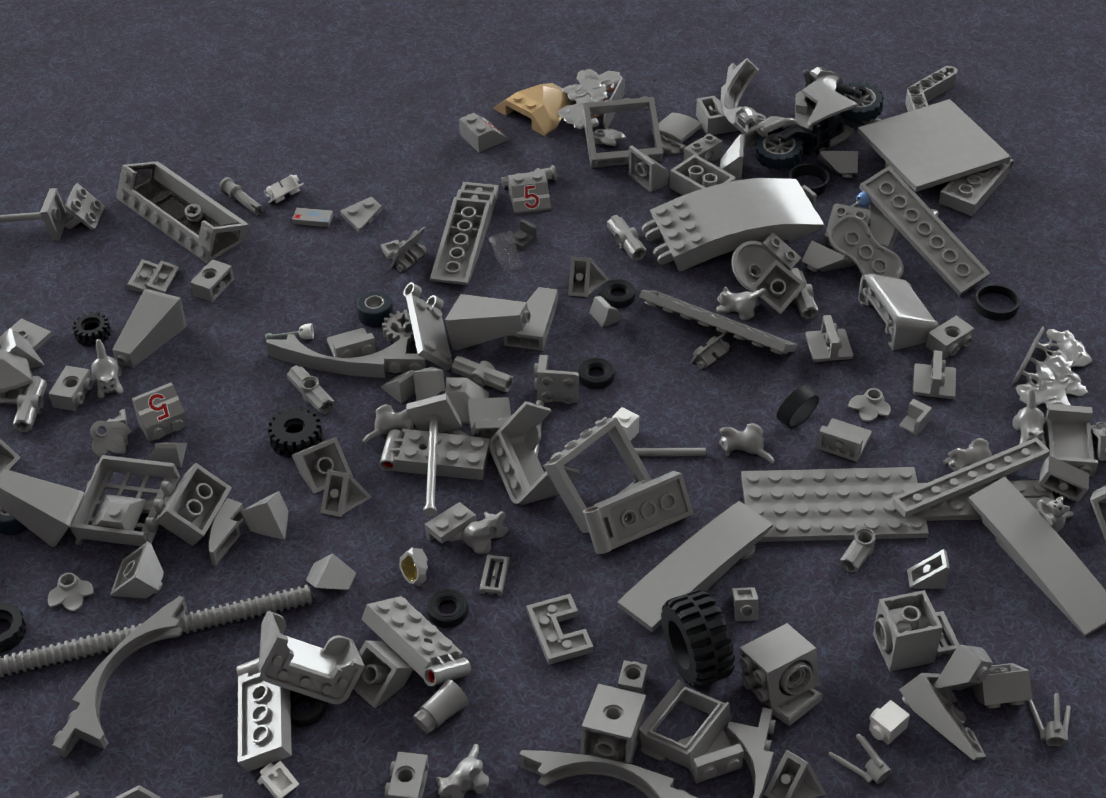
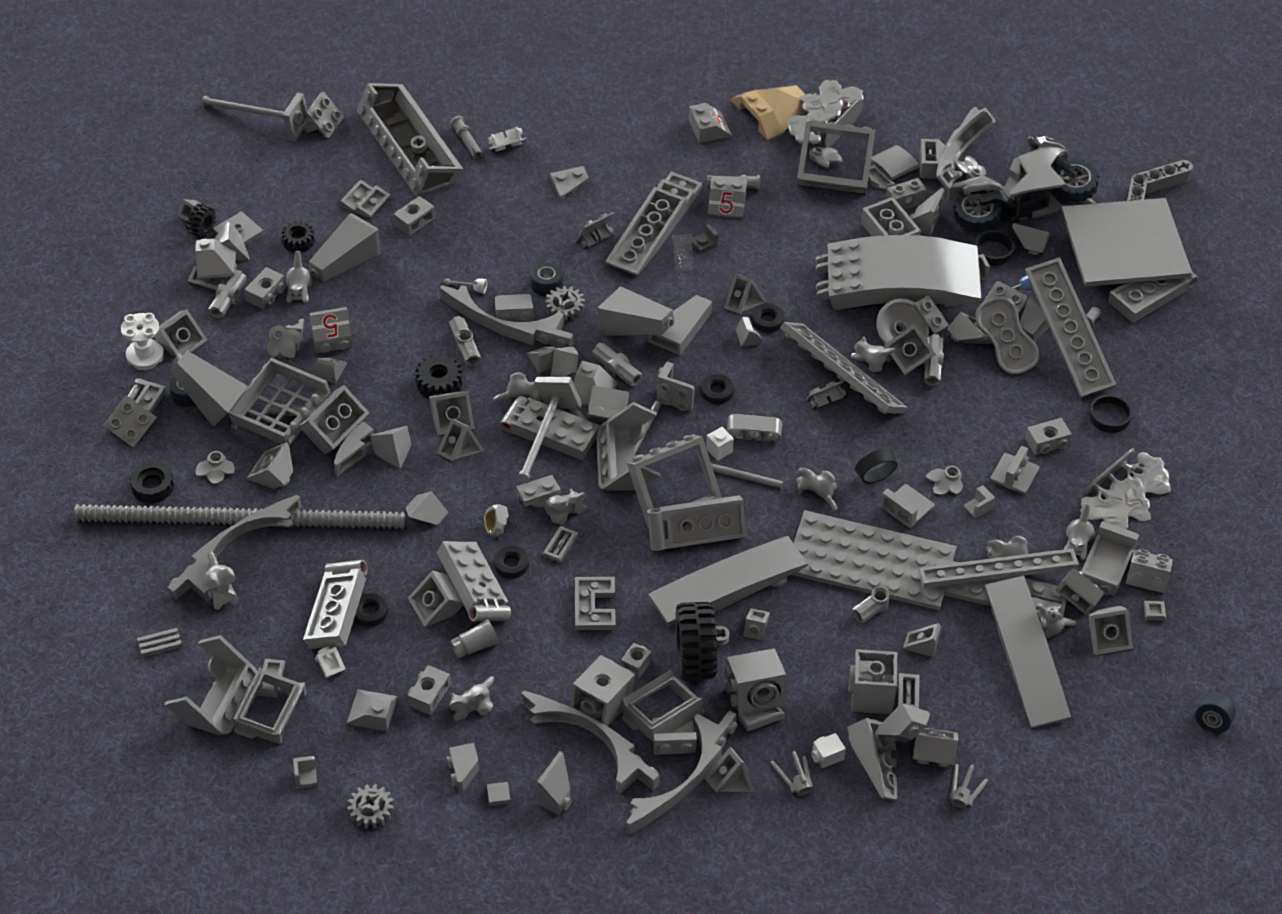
camera: 15 degrees right, 5 degrees up
(115, 719) = (219, 580): none -> light grey animal
(119, 512) = (272, 411): light grey slope -> none
(306, 668) = (377, 578): light grey windscreen -> none
(312, 217) = (523, 173): light grey tile -> none
(389, 249) = (580, 221): light grey tile -> none
(428, 327) = (583, 314): light grey hinge -> none
(626, 237) = (798, 265): light grey piece -> none
(646, 170) = (844, 202): light grey slope -> none
(653, 400) = (754, 427): none -> light grey beam
(829, 342) = (936, 414): light grey bracket -> none
(899, 308) = (1012, 397): light grey windscreen -> none

